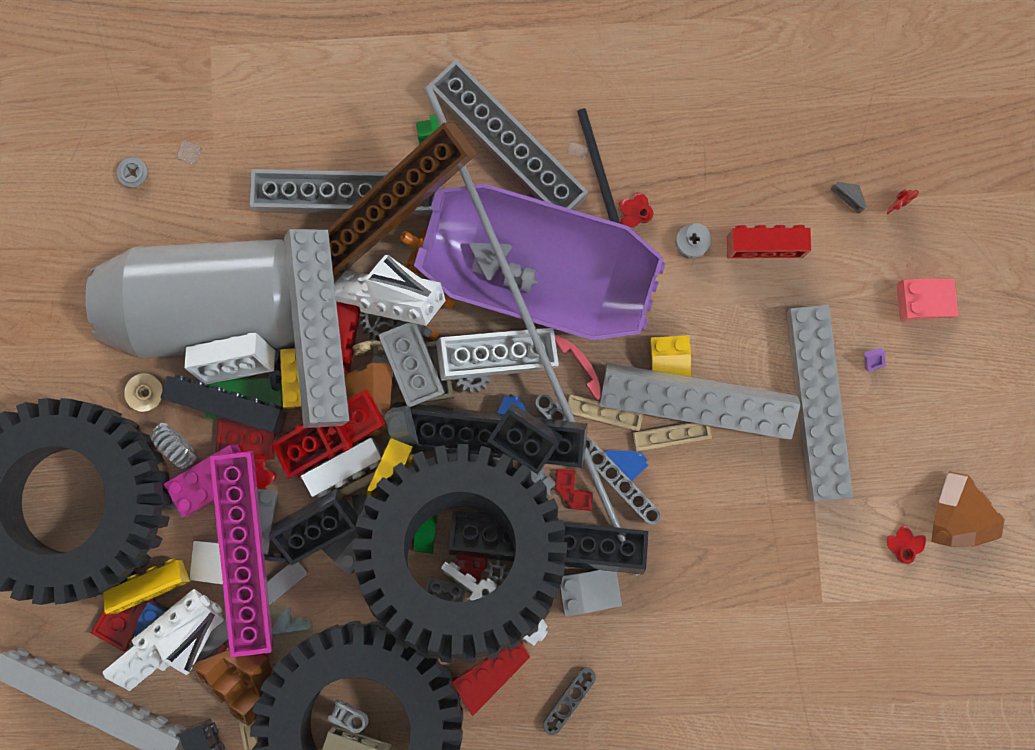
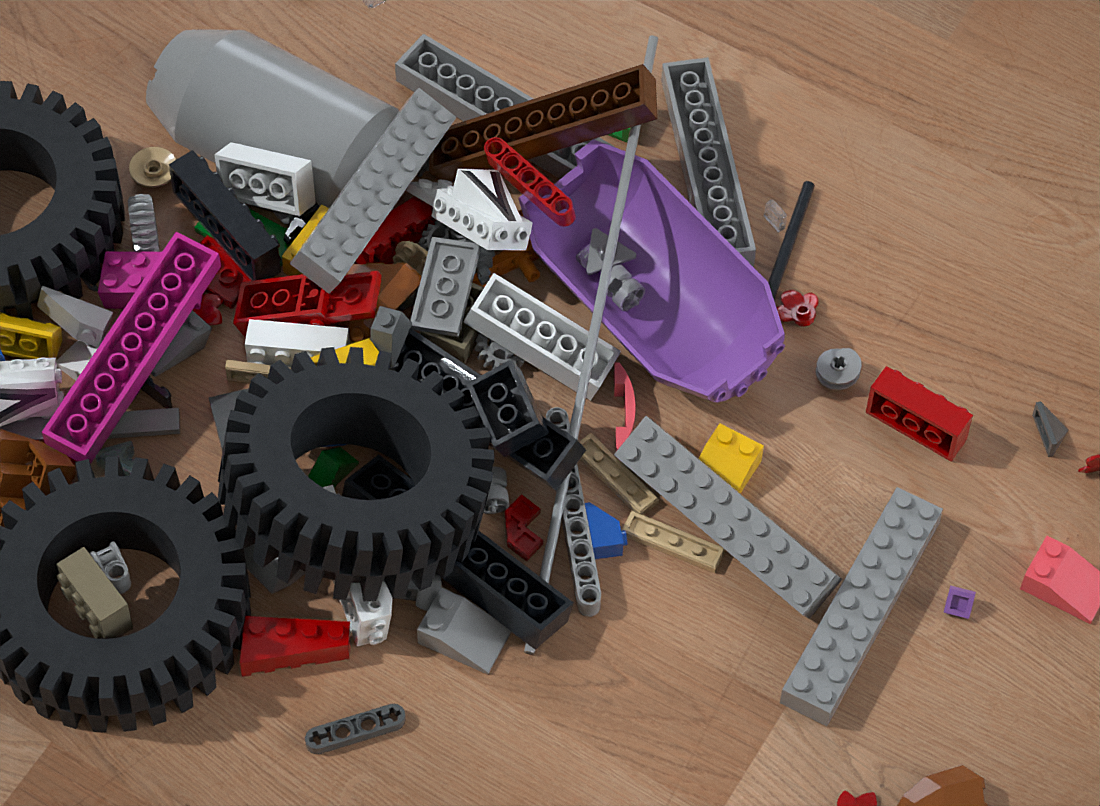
camera: 30 degrees right, 25 degrees down
(189, 547) = (78, 318): none -> light grey slope
(314, 526) = (216, 375): black brick -> none
(406, 252) = (533, 191): none -> red beam

